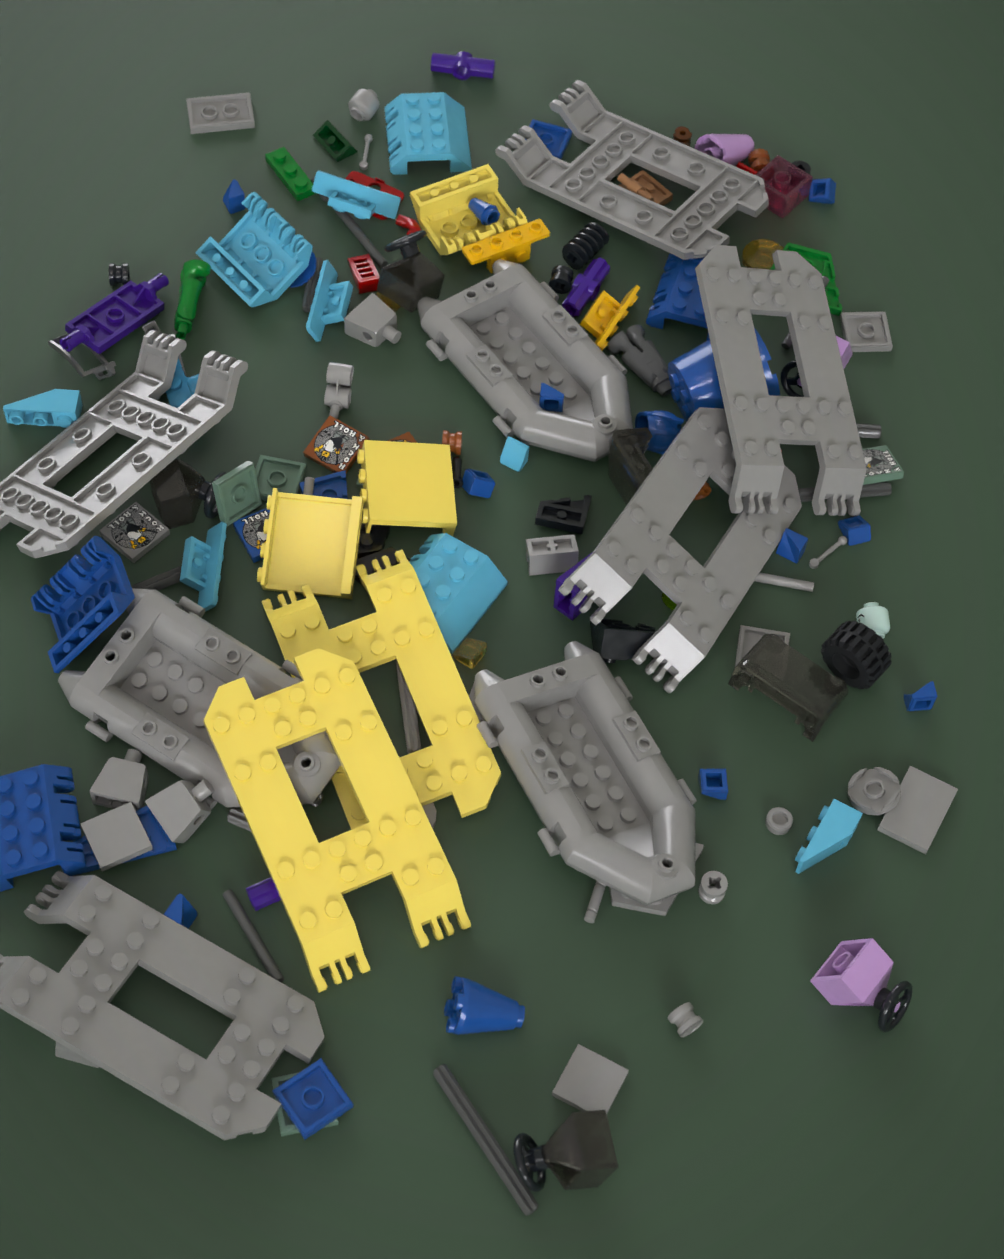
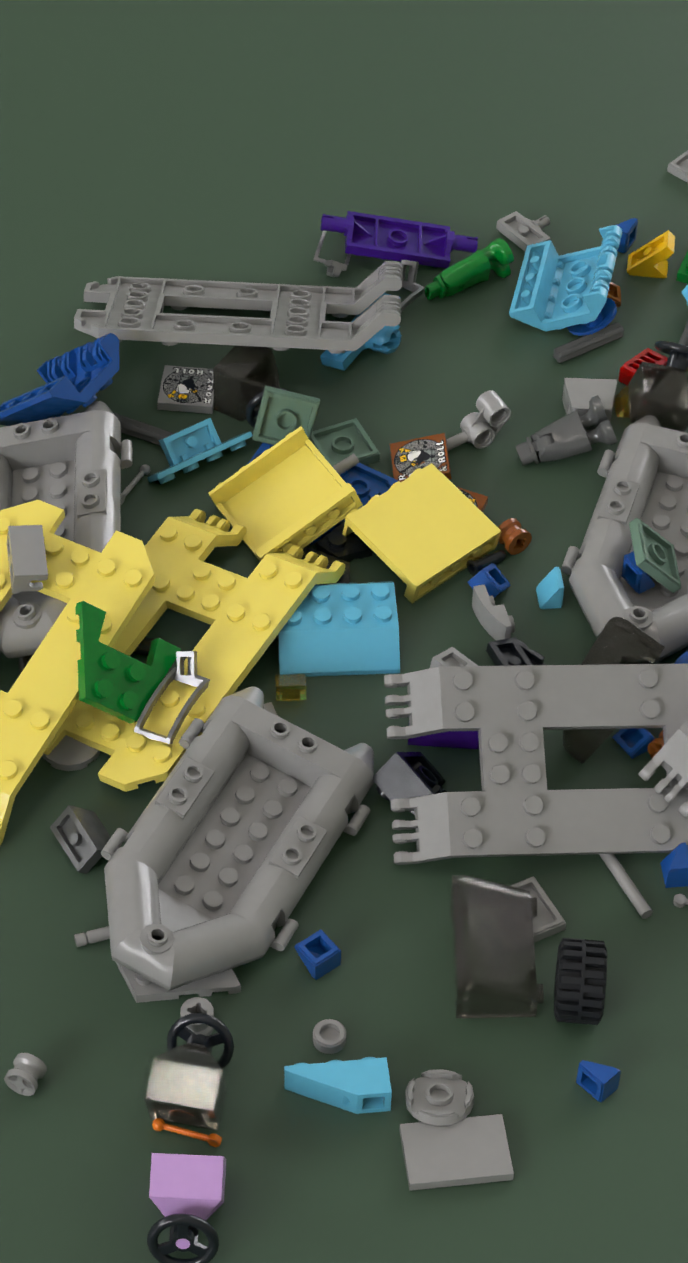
camera: 55 degrees right, 10 degrees down
(49, 408) = (255, 259): medium azure slope -> none
(119, 274) = (448, 215): black wheel -> none
(176, 244) = (523, 230): none -> light grey plate
(274, 191) = (652, 257): none -> yellow slope
(276, 728) = (26, 557): none -> light grey hinge
(329, 301) = (578, 360): medium azure bracket -> none
(396, 352) = (568, 436): none -> dark grey piece
(412, 745) = (113, 679): none -> green wing
(438, 704) = (178, 675): none -> flat silver sword
(507, 860) = (81, 836): none -> dark grey panel
(517, 502) = (492, 616): none -> light grey slope
(551, 379) = (655, 555): none -> sand green tile
(775, 921) = (186, 1080): none -> clear smoke piece
(779, 964) = (213, 1139): none -> orange hinge
(875, 618) = (650, 984): light aqua head -> none

